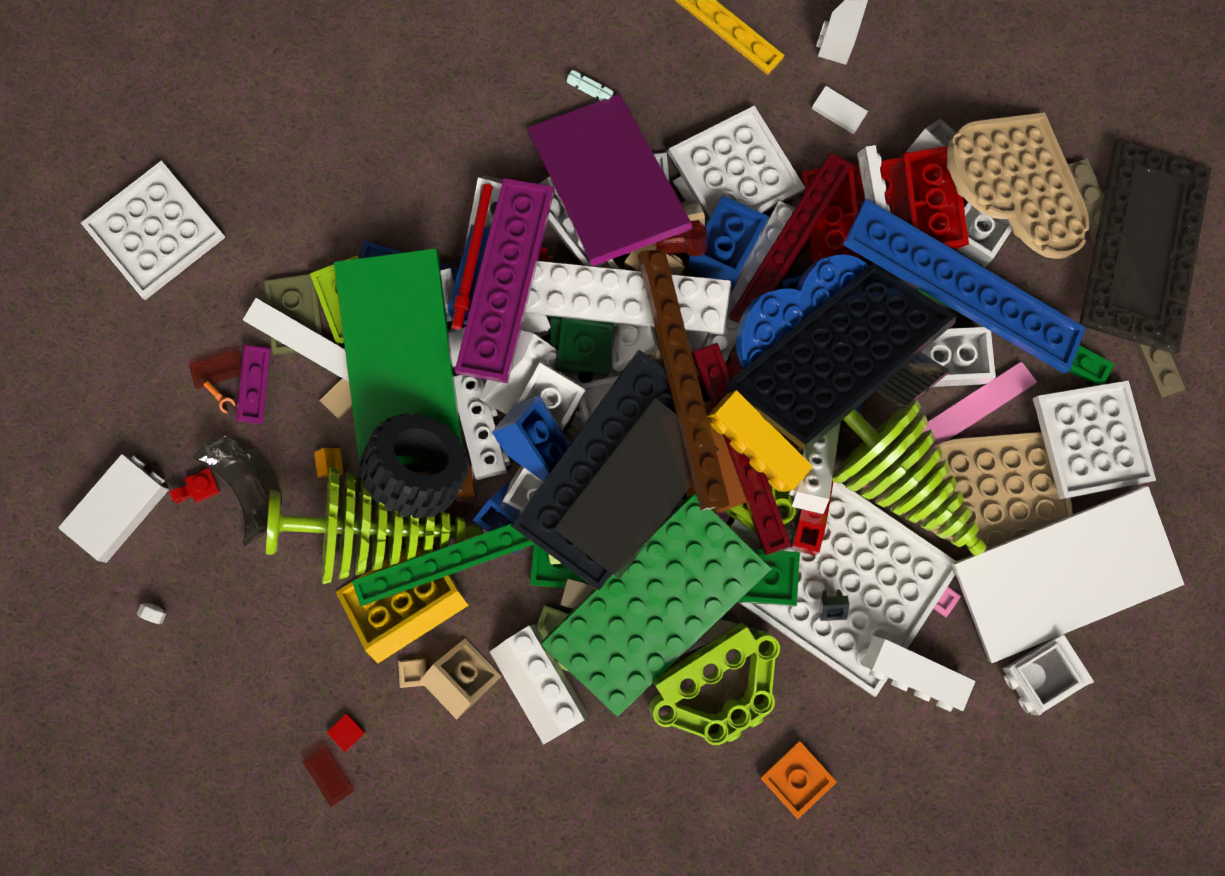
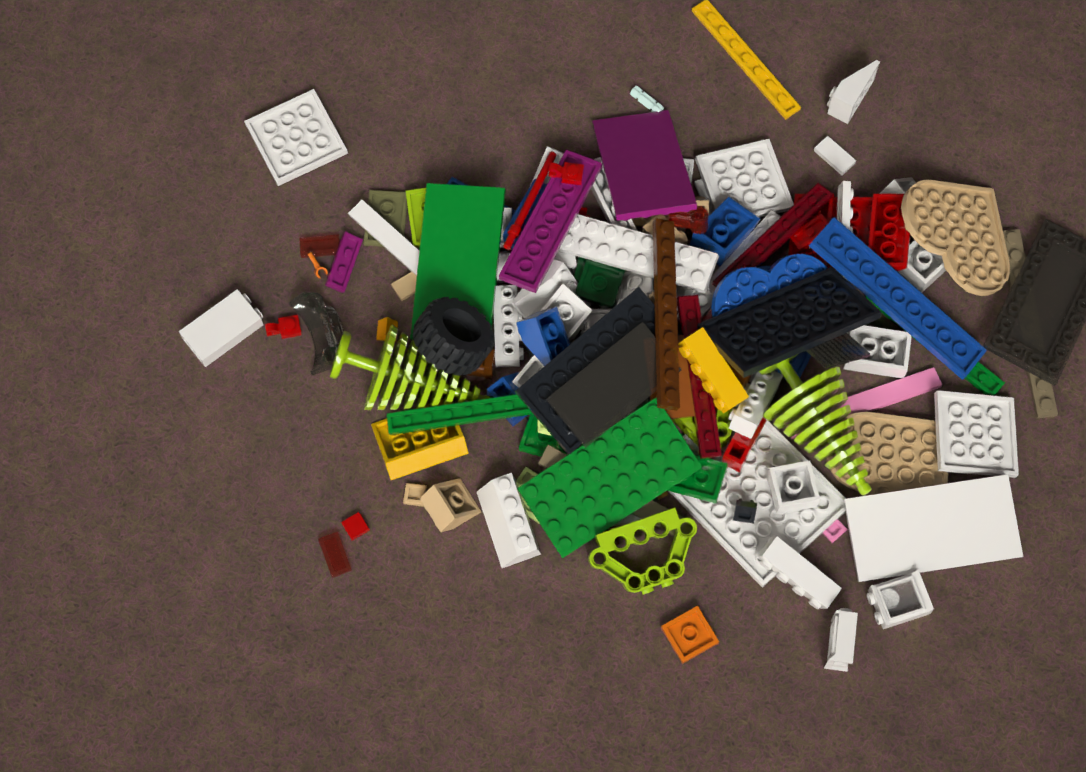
camera: 15 degrees right, 10 degrees down
(151, 613) = (231, 408): white tile -> none
(517, 210) = (570, 173): none -> red plate
(835, 221) = (808, 232): none -> red plate
(888, 564) = (793, 487): none -> white brick
(990, 748) = (841, 640): none -> white window

